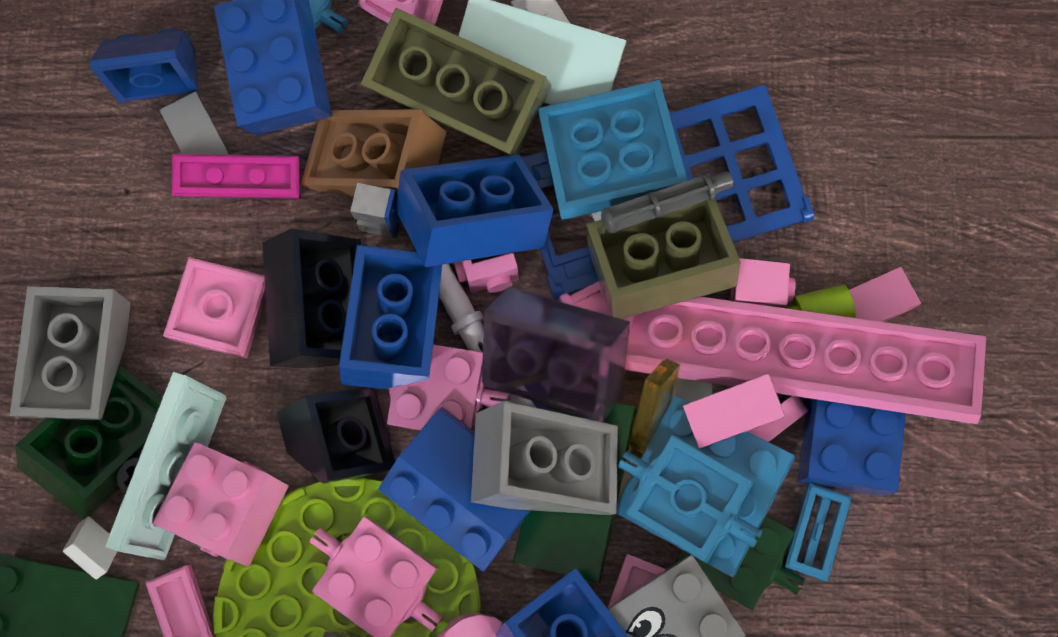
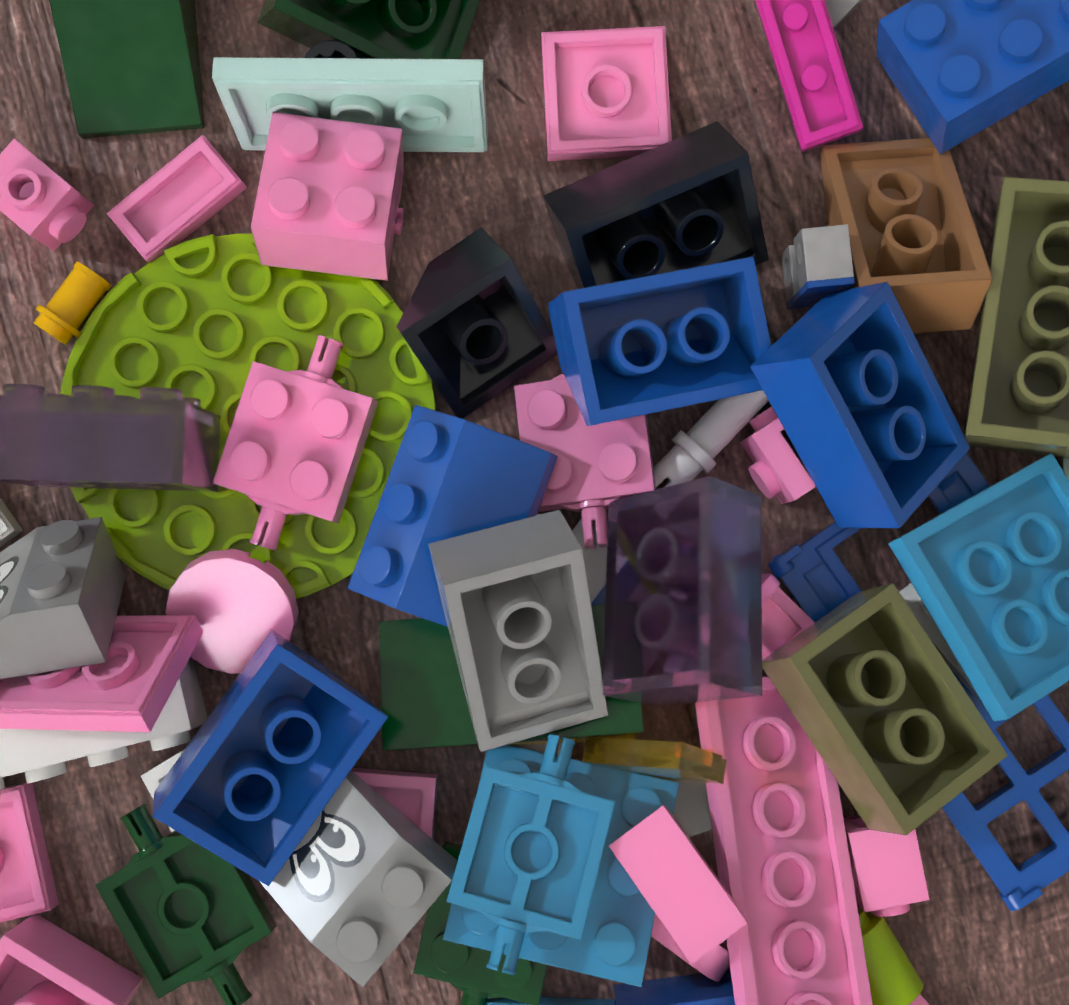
camera: 75 degrees right, 10 degrees up
(88, 548) = (219, 35): white tile -> none
(665, 201) = (966, 694): dark grey piece -> none

